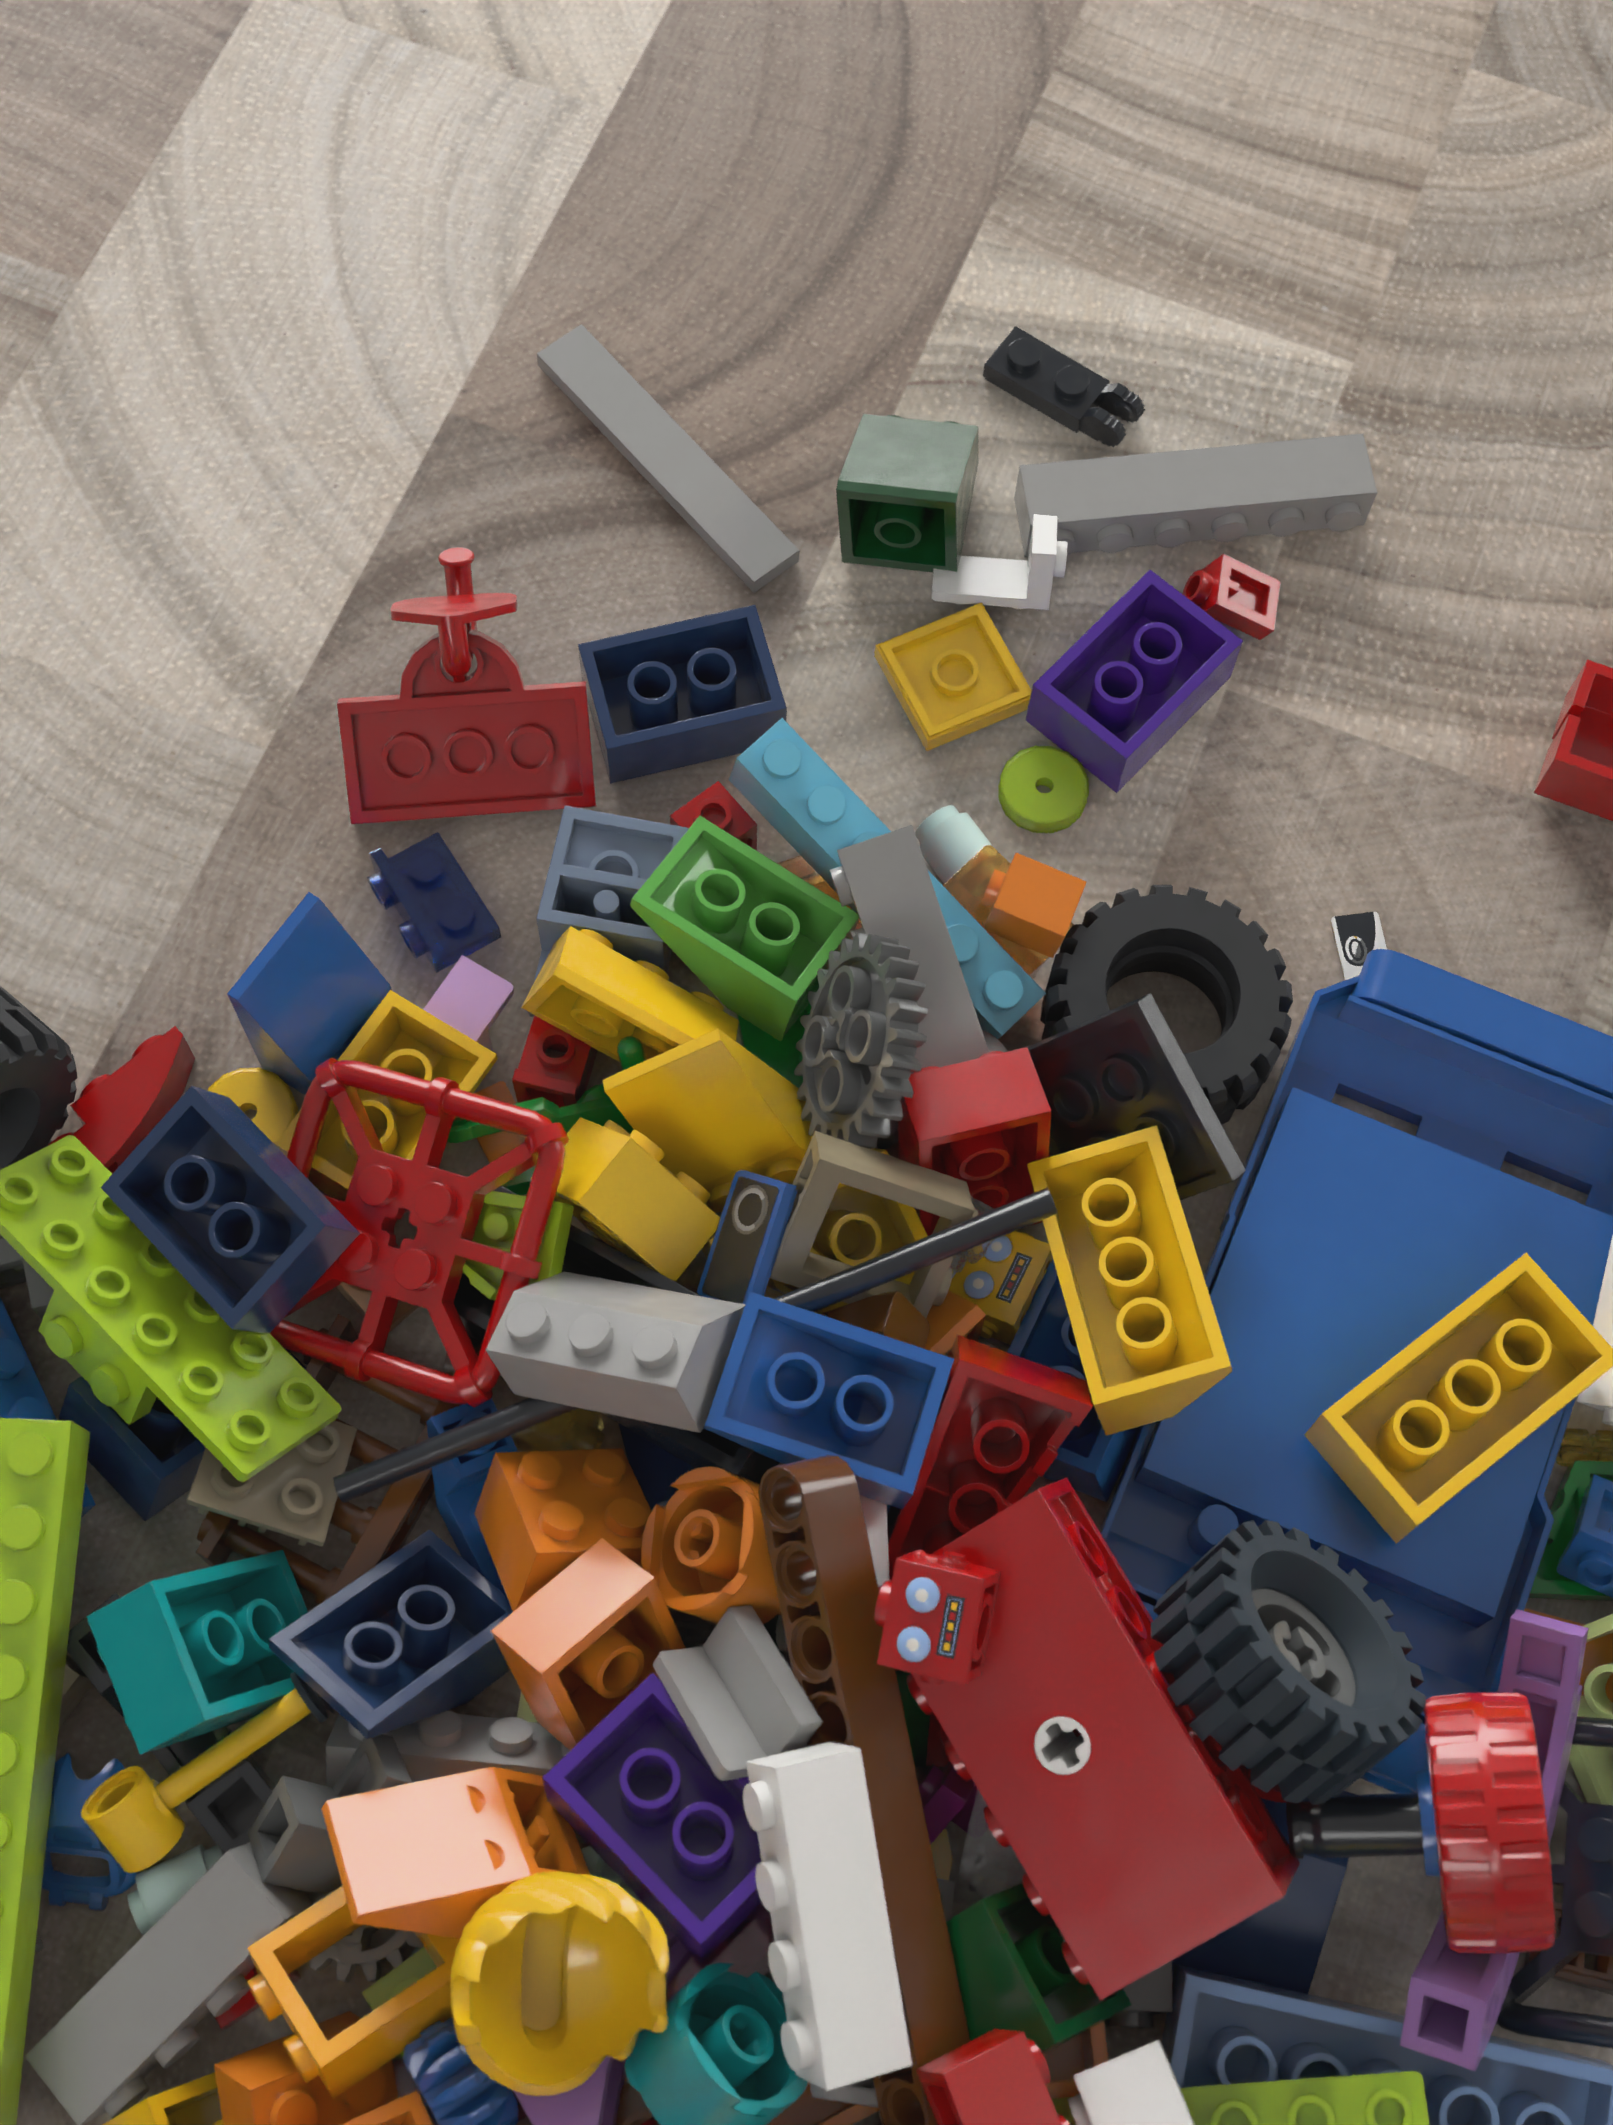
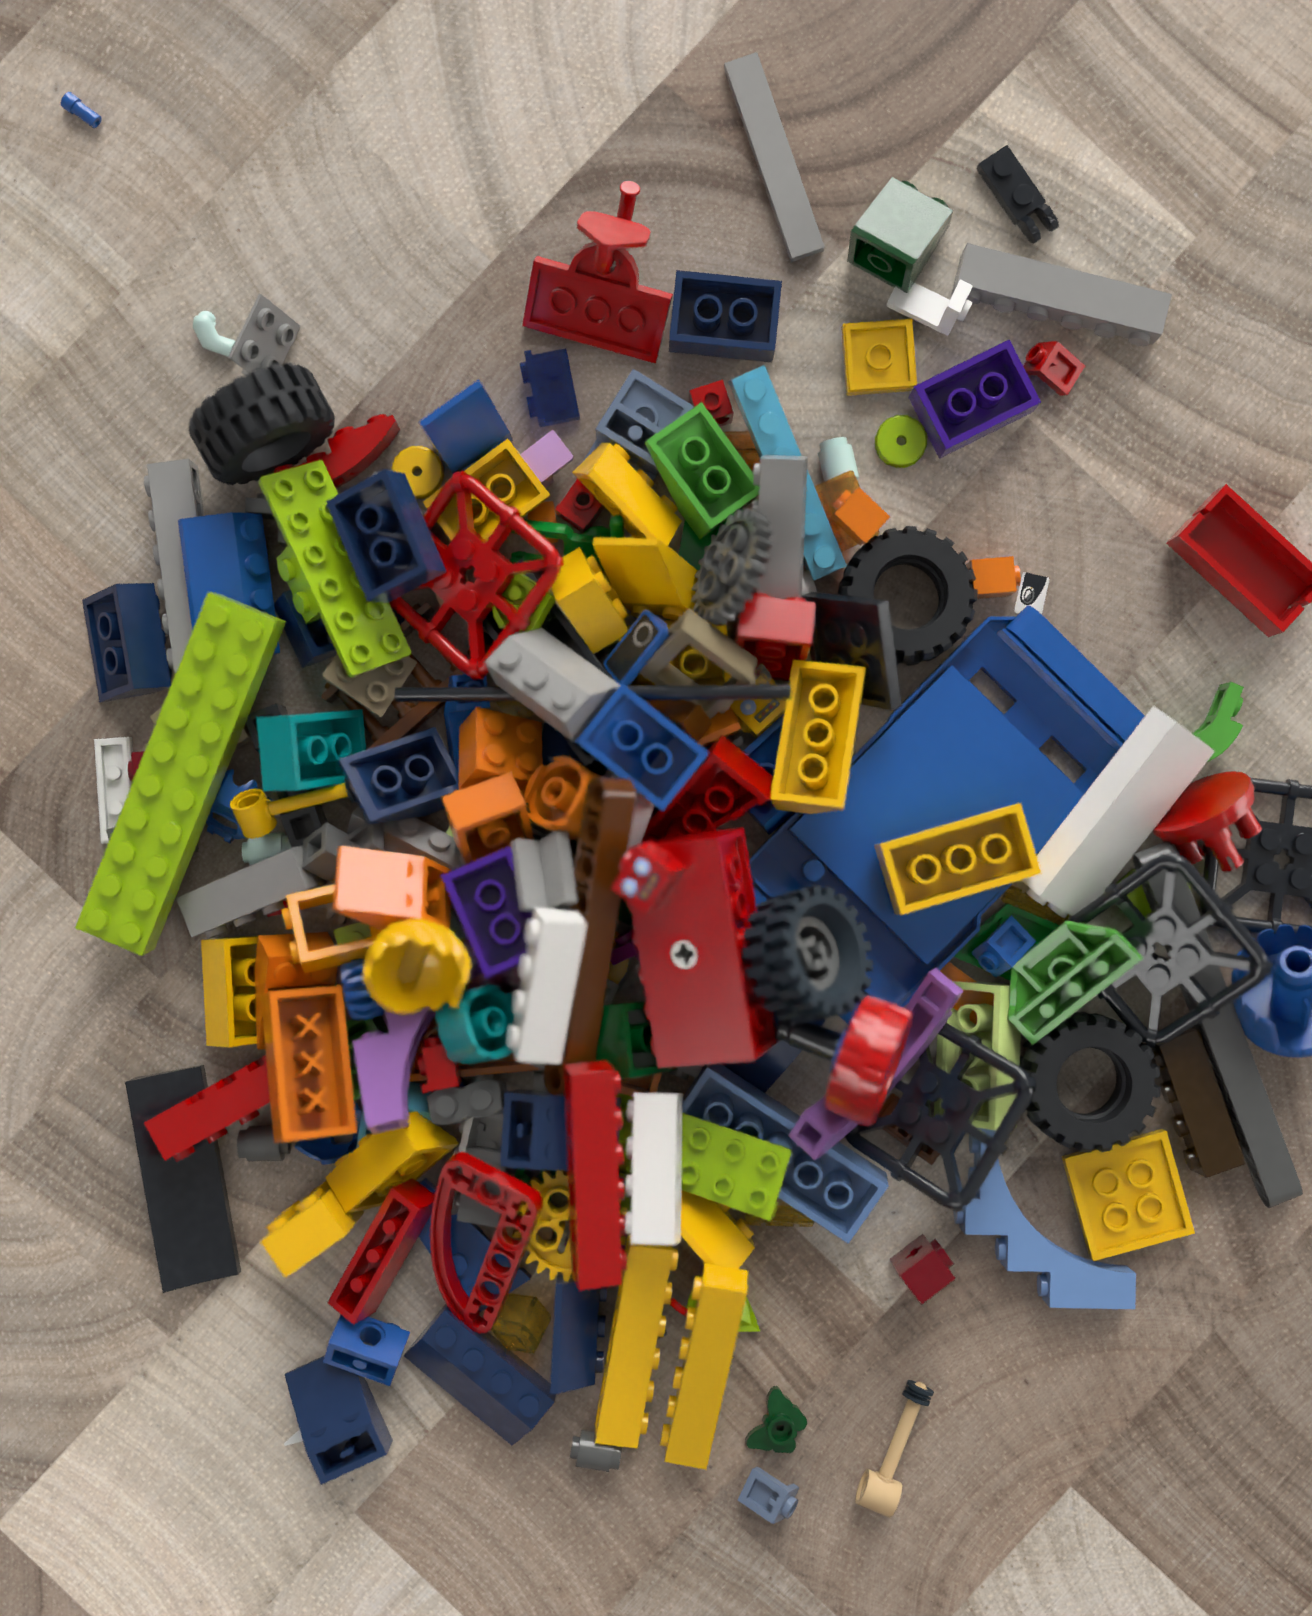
camera: 20 degrees right, 20 degrees up
(1299, 930) = (995, 576): none -> orange brick

